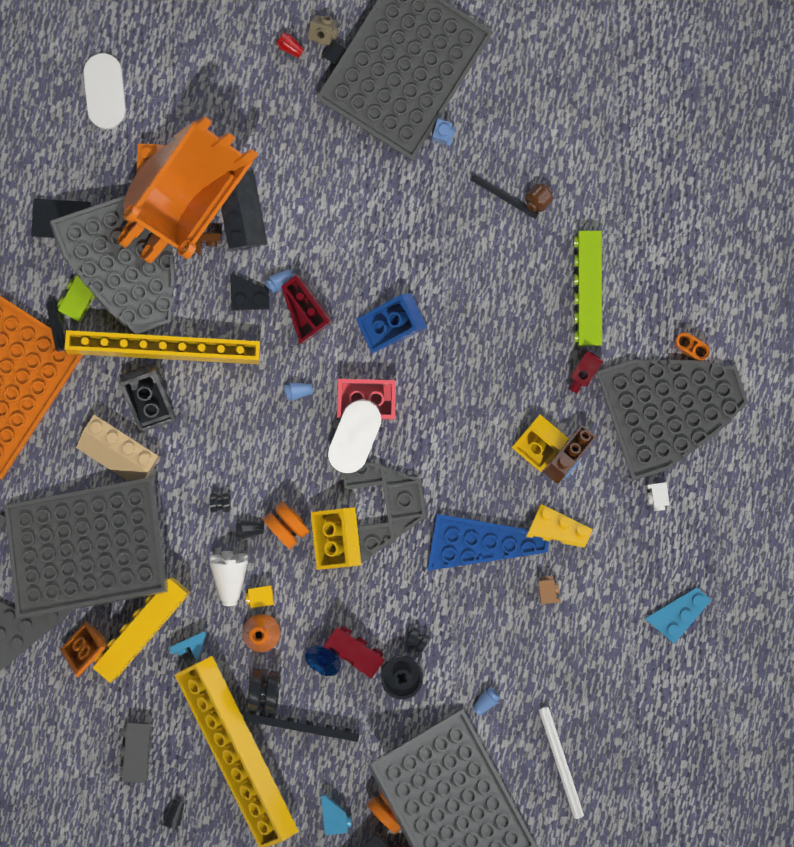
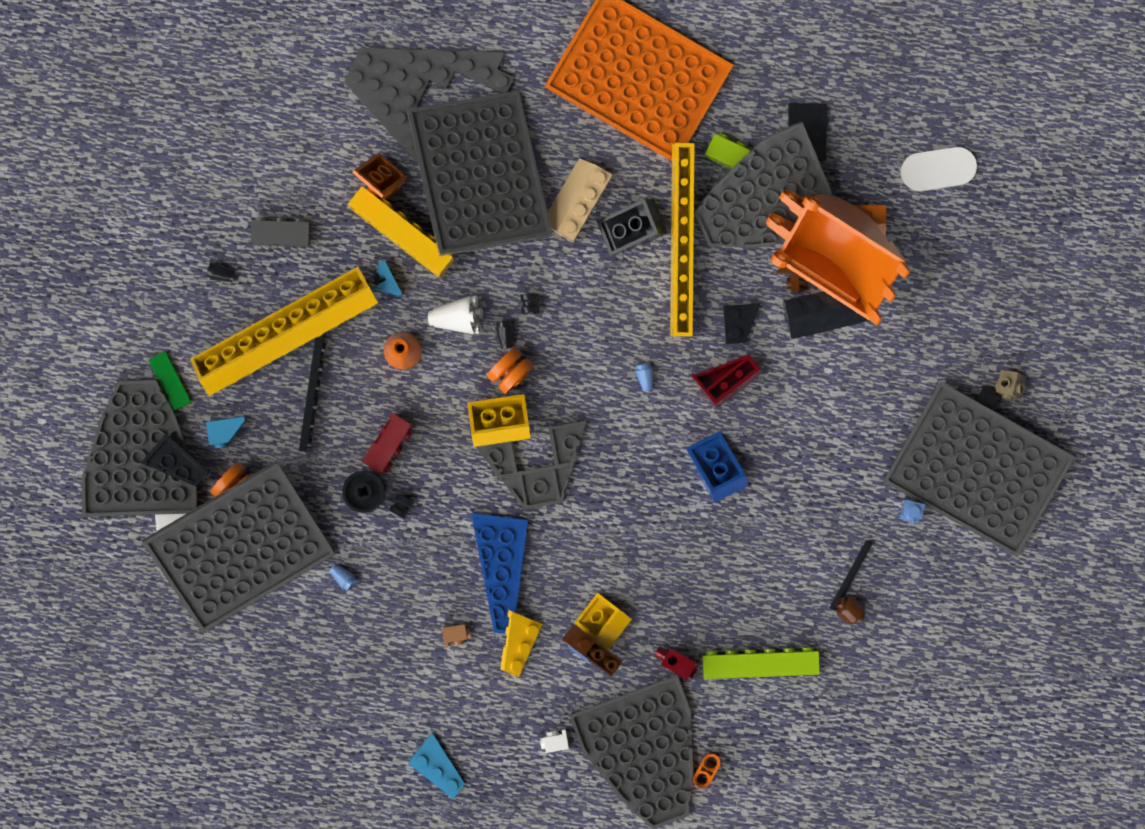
camera: 80 degrees right, 0 degrees up
(56, 326) = (699, 132): black axle -> none
(260, 596) = (438, 348): yellow brick -> none
(265, 691) = (345, 353): black wheel -> none
(275, 281) = (755, 351): medium blue cone -> none
(290, 45) = (994, 352): red cone -> none
(323, 660) = (377, 412): clear blue dish -> none
(354, 436) = (601, 434): white tile -> none
(379, 392) = (639, 445): coral brick -> none
(561, 762) = (285, 654): white axle -> none

